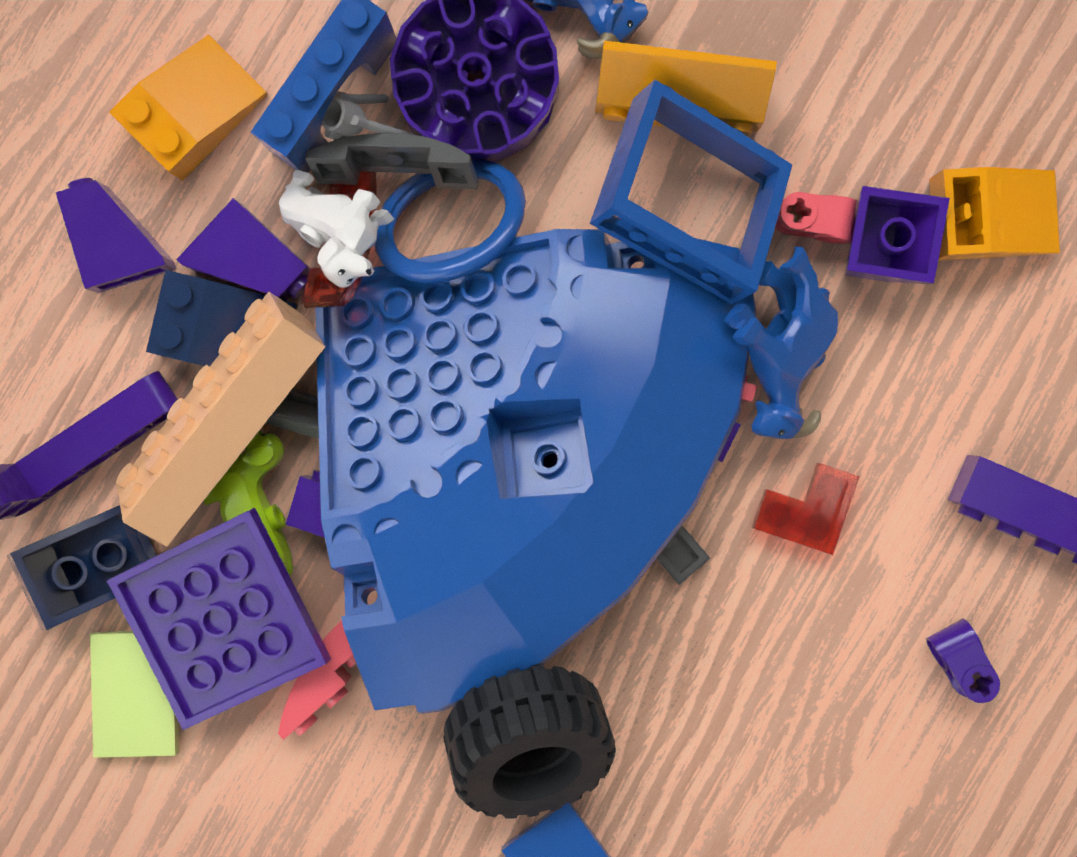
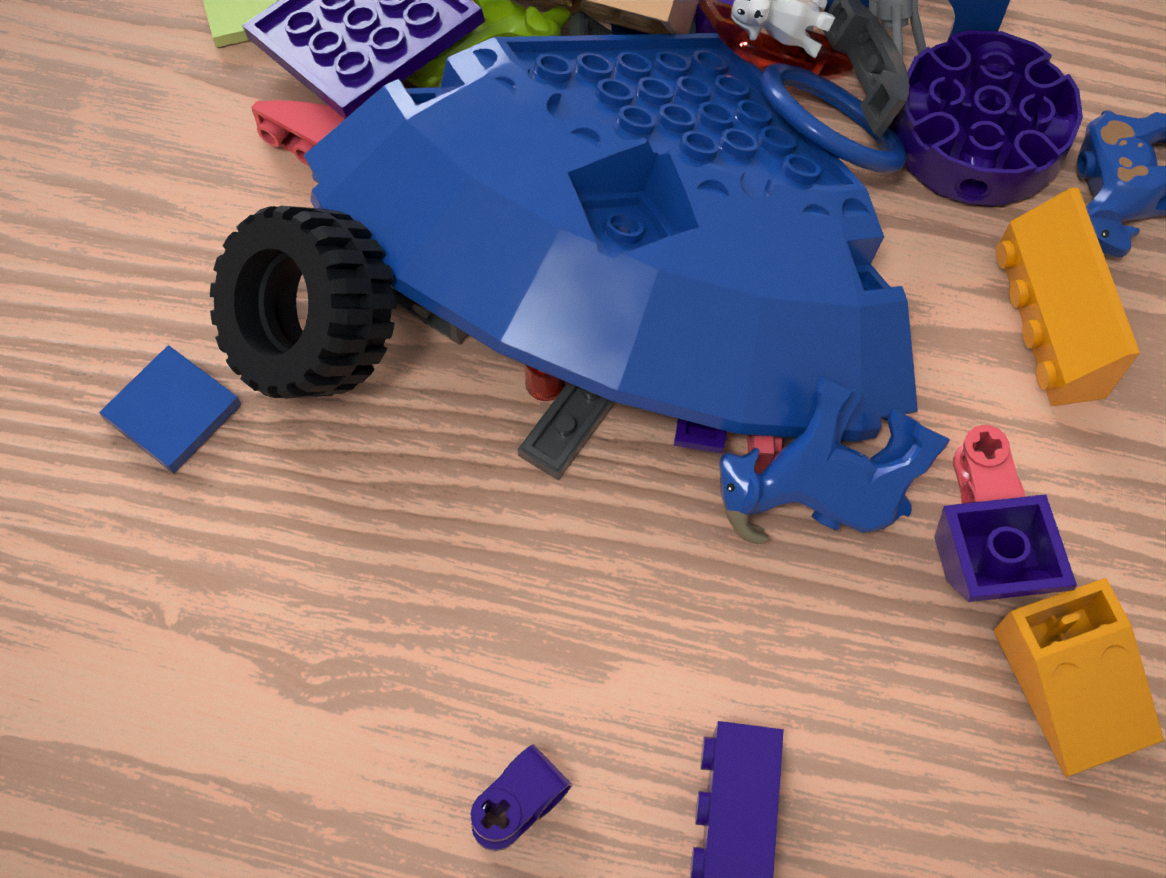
camera: 70 degrees right, 25 degrees down
(663, 240) = (894, 303): blue window -> none
(816, 519) = (641, 576): clear red plate -> none

